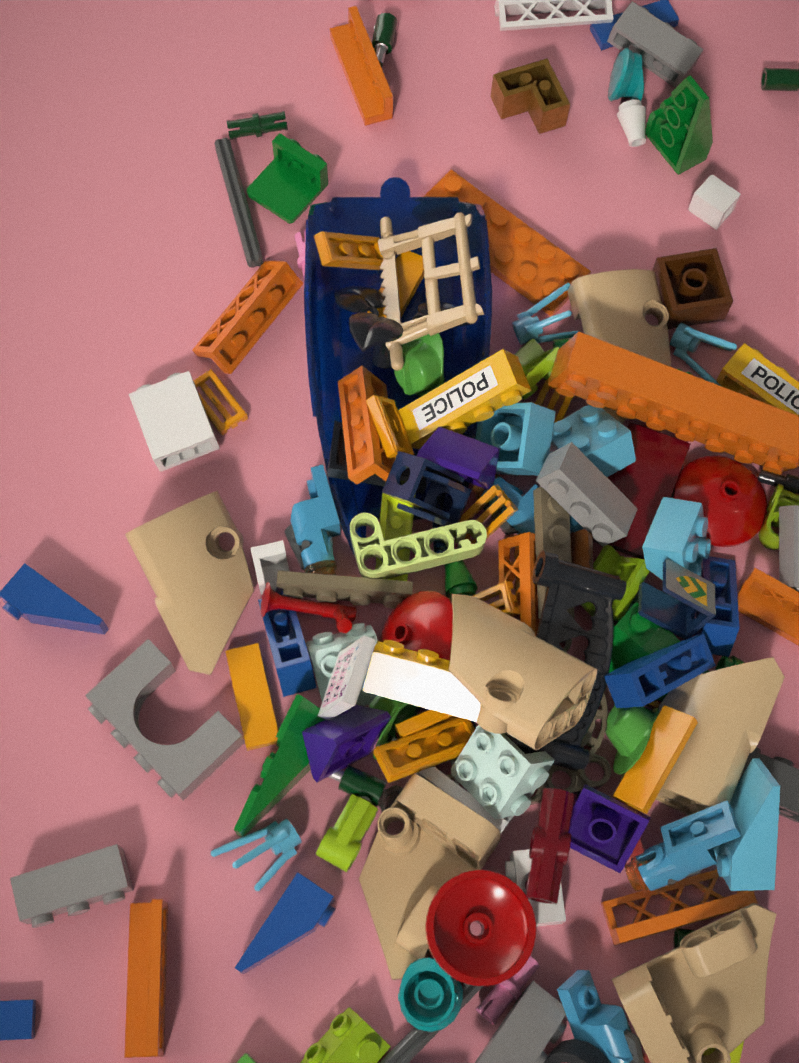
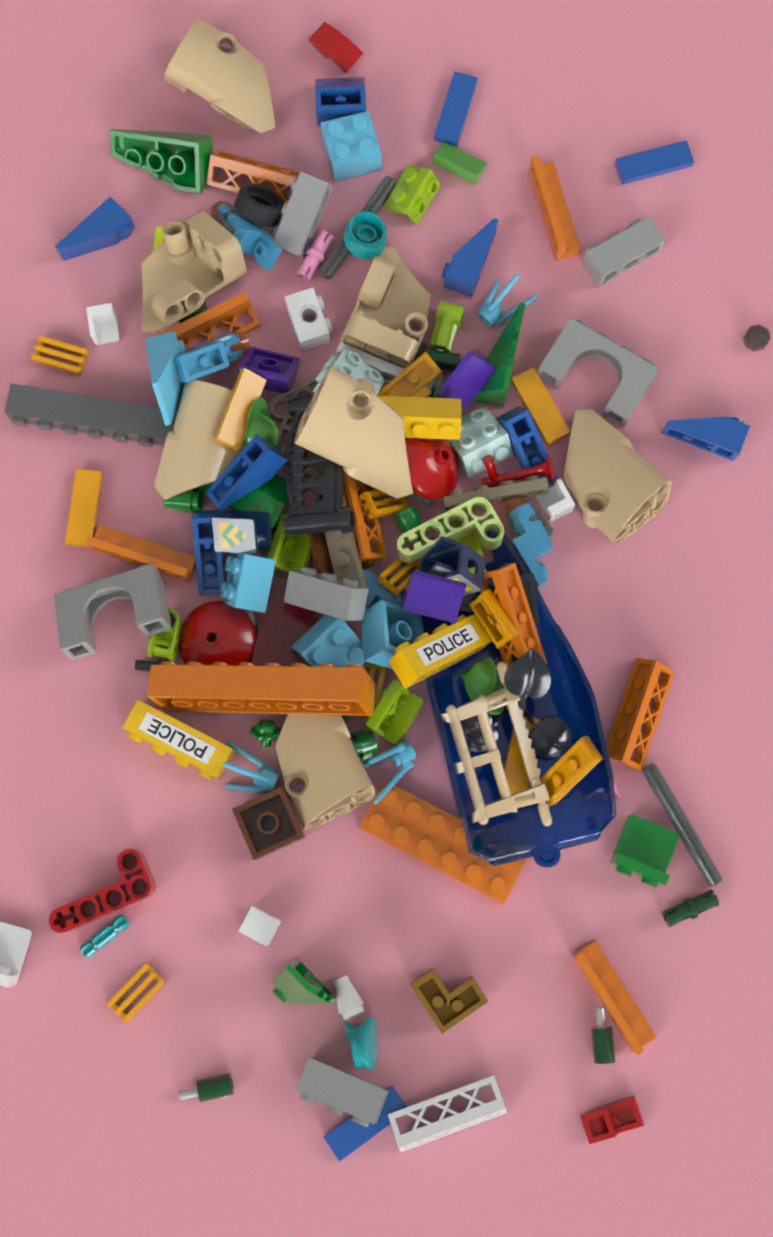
camera: 170 degrees right, 10 degrees up
(173, 421) = (668, 601): white brick -> none
(231, 421) = (635, 640): light orange tile -> none
(347, 678) = (474, 403): white tile -> none
(505, 923) = (337, 260): red dish -> none
(550, 846) = (304, 335): dark red piece -> none

